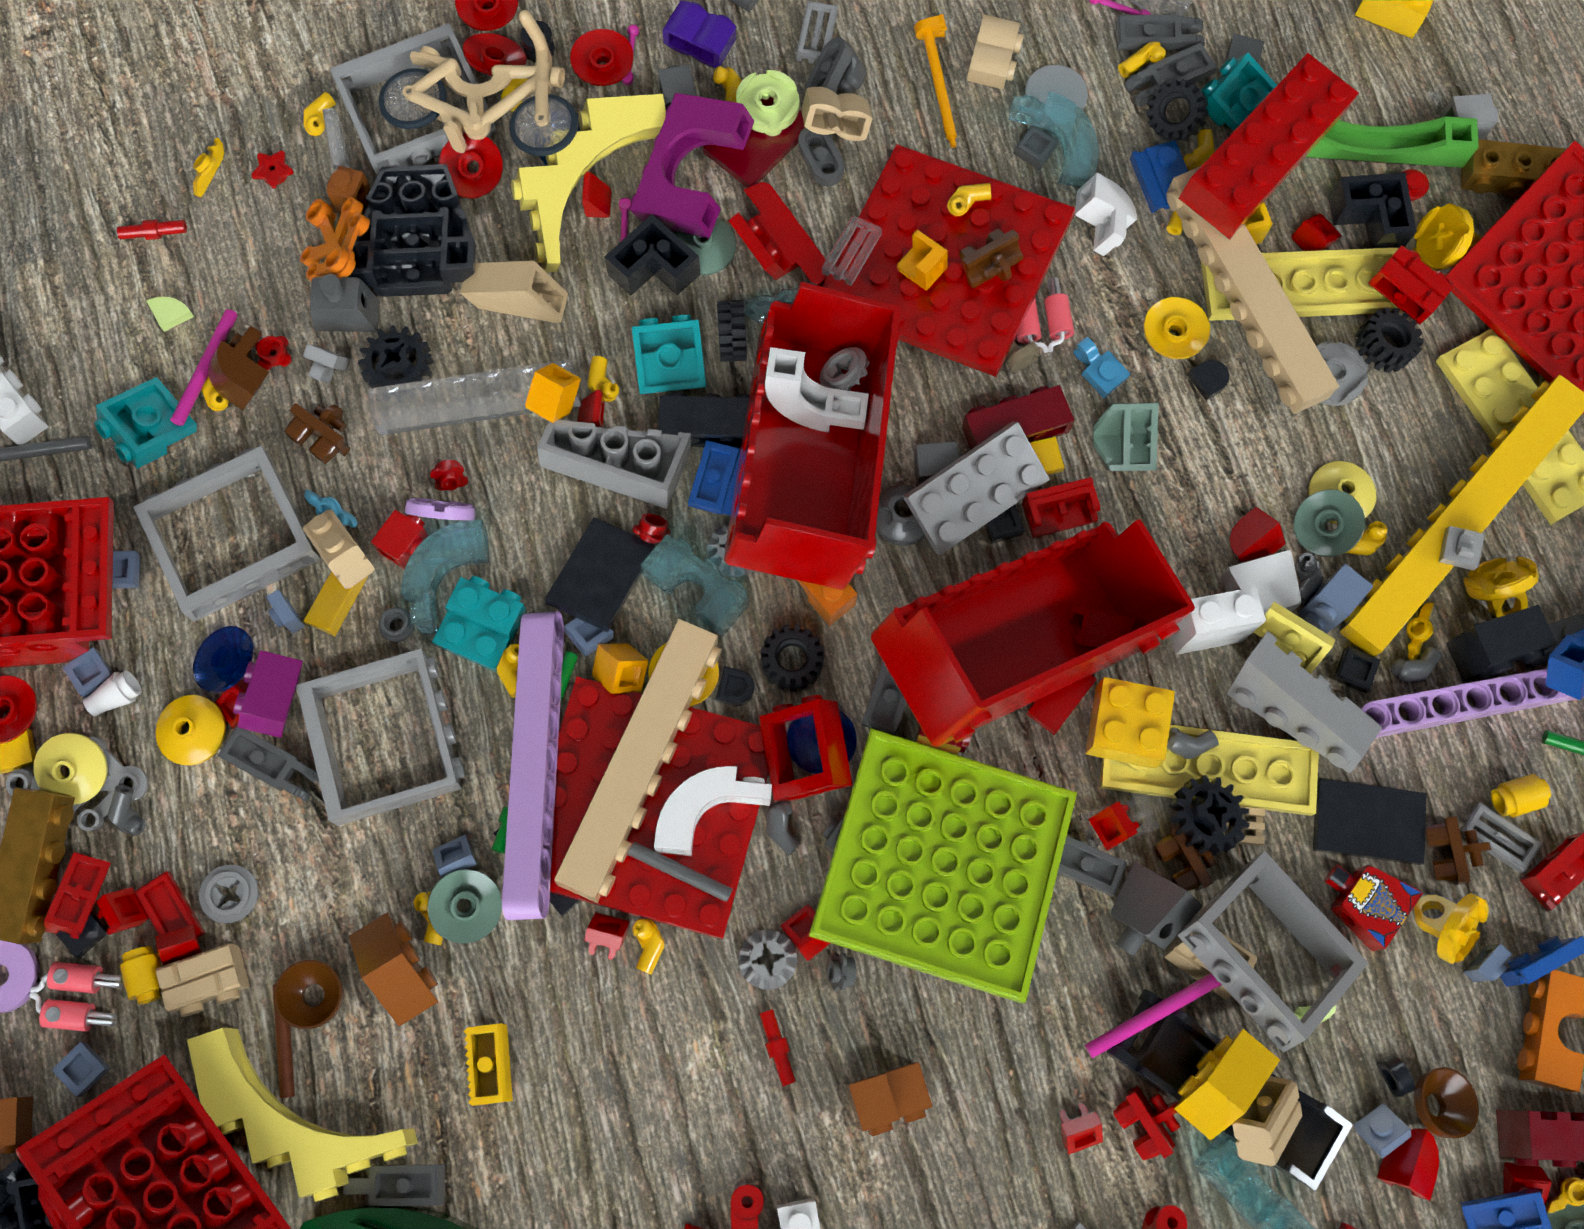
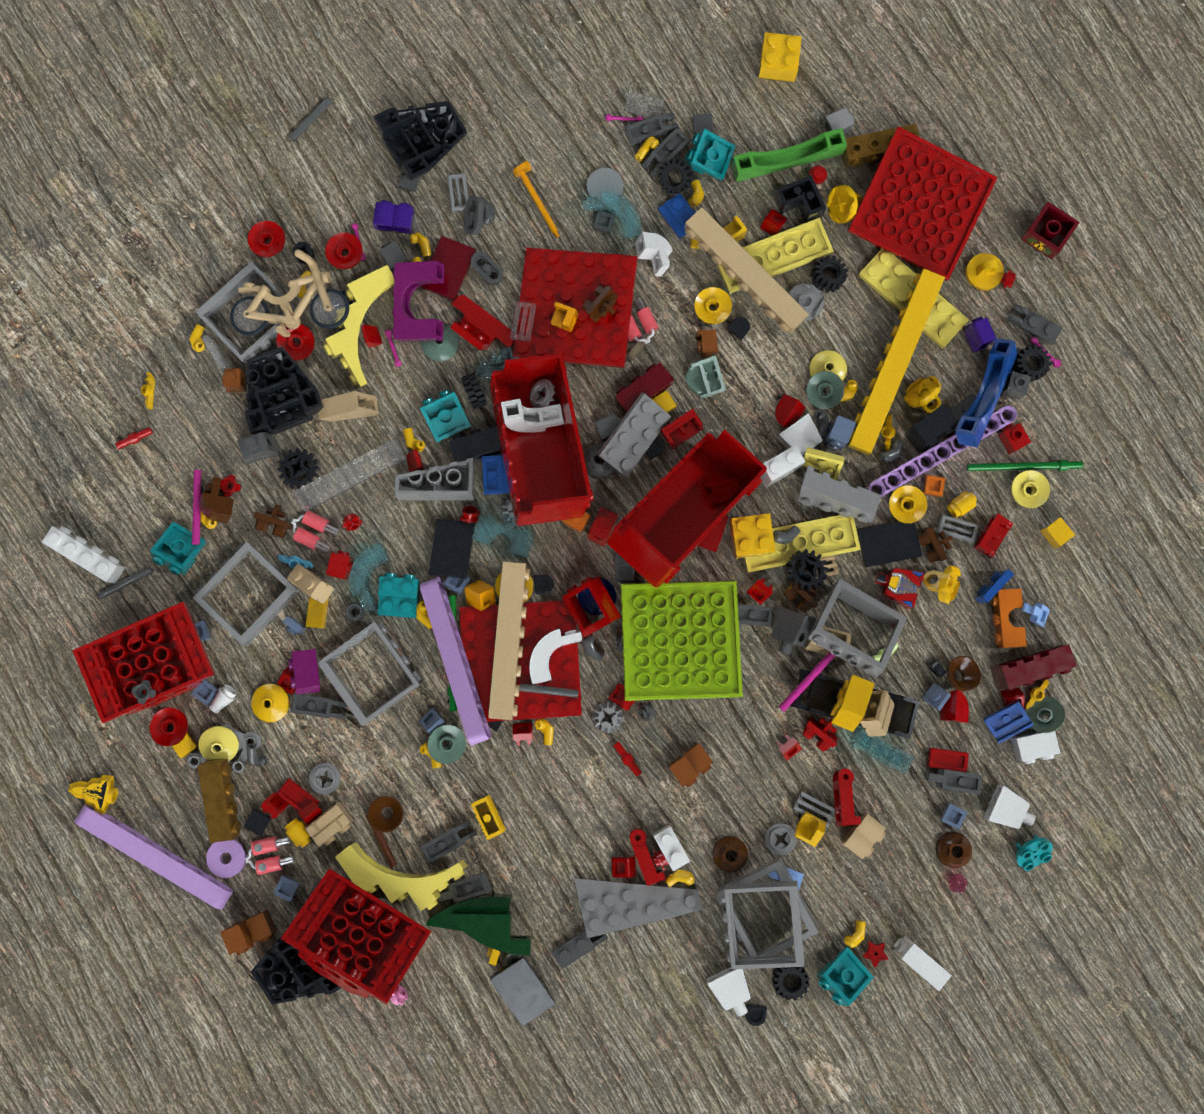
camera: 15 degrees left, 10 degrees up
(76, 895) = (250, 806): red hinge -> none
(169, 312) = (163, 481): yellowish green tile -> none
(222, 659) = (272, 661): clear blue dish -> none
(276, 176) = (185, 384): red plate -> none
(324, 362) = (260, 482): light grey tile -> none
(338, 256) = (248, 424): orange plant -> none
(367, 479) = (309, 539): none -> coral piece
(391, 968) = (423, 787): dark orange brick -> none
(396, 1087) = (446, 842): none -> dark grey hinge
(440, 509) = (355, 545): lavender tile -> none
(488, 49) = (282, 269): red dish -> none
(552, 392) = (391, 461): light orange panel -> none
(651, 252) = (414, 359): black brick -> none
(786, 101) = (444, 237): yellowish green plate -> none
(792, 678) = (567, 547): black tyre -> none
(840, 114) = (488, 242): tan brick -> none
(866, 619) = (602, 526): none -> red torso
(966, 196) = (575, 270): yellow arm -> none
(993, 52) = (562, 172): tan brick -> none
(1103, 371) = (680, 343): dark azure plate -> none
(1148, 380) = (708, 343): none -> dark orange brick
(1268, 145) = (731, 187): red brick -> none
(1356, 669) = (861, 464): black tile -> none
(1411, 284) = (832, 239): red brick -> none
(1437, 759) = (914, 498): none -> yellow dish
(1461, 548) = (896, 384): light grey tile -> none
(1476, 748) = (933, 485): none -> orange tile
(1488, 963) = (967, 596): sand blue plate -> none

